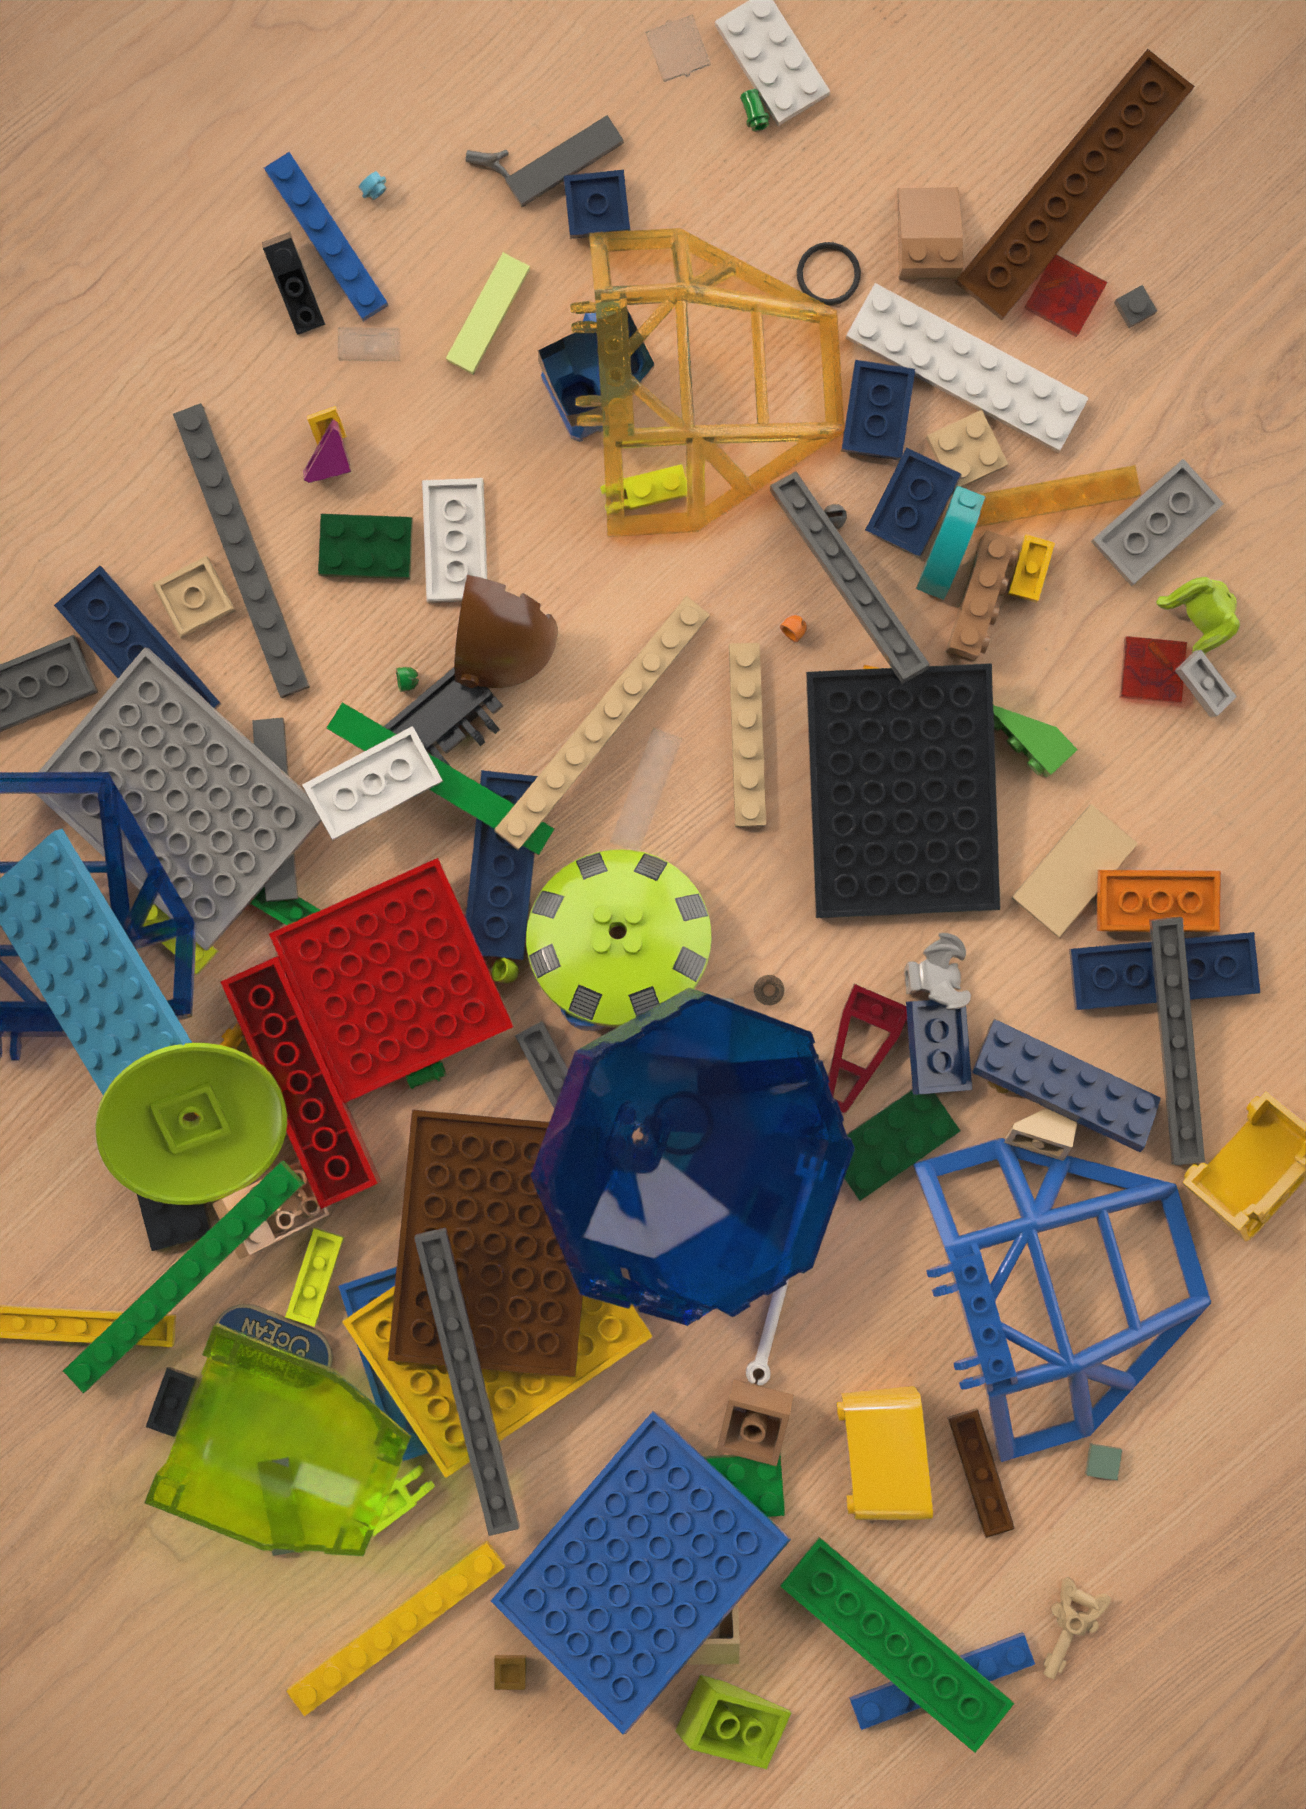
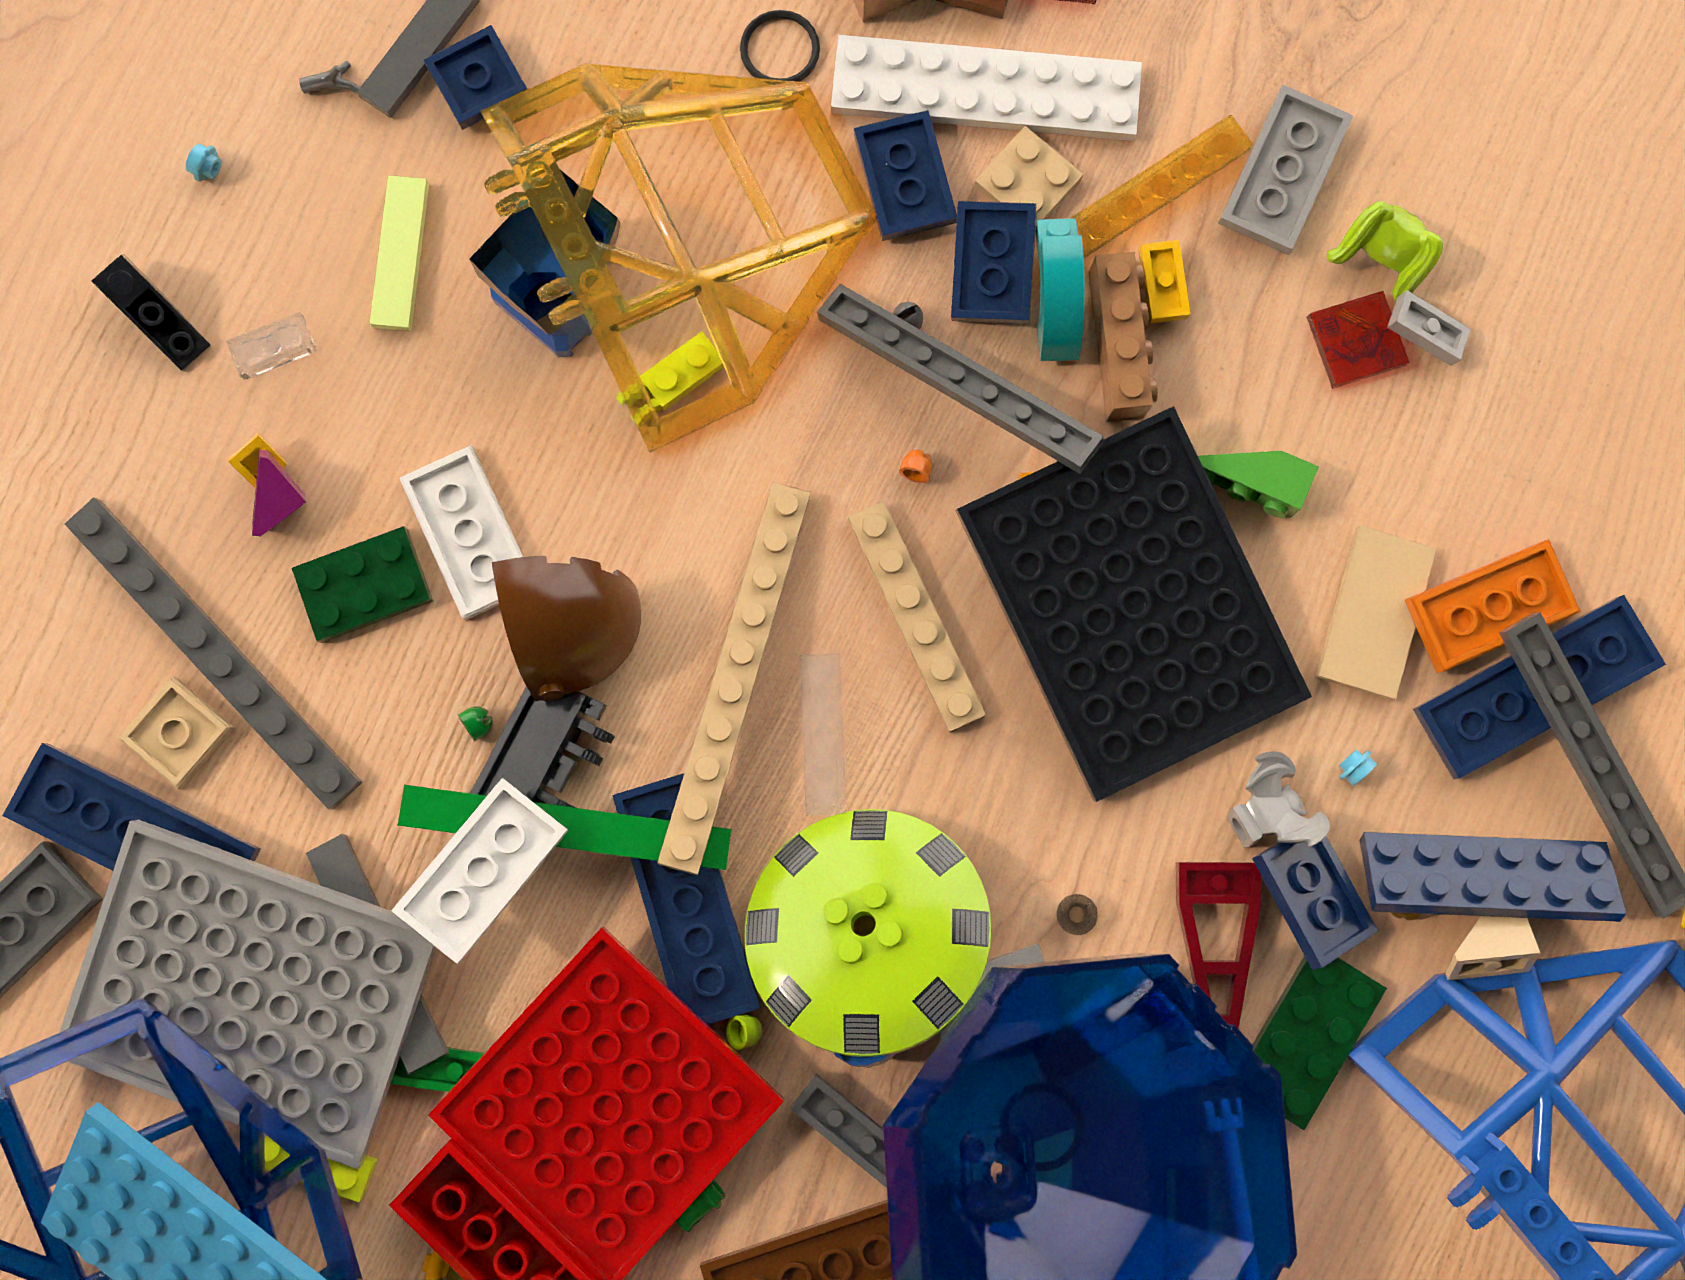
camera: 20 degrees left, 5 degrees down
(326, 236) = (171, 243): blue plate -> none
(1010, 972) = (1357, 766): none -> medium azure plate

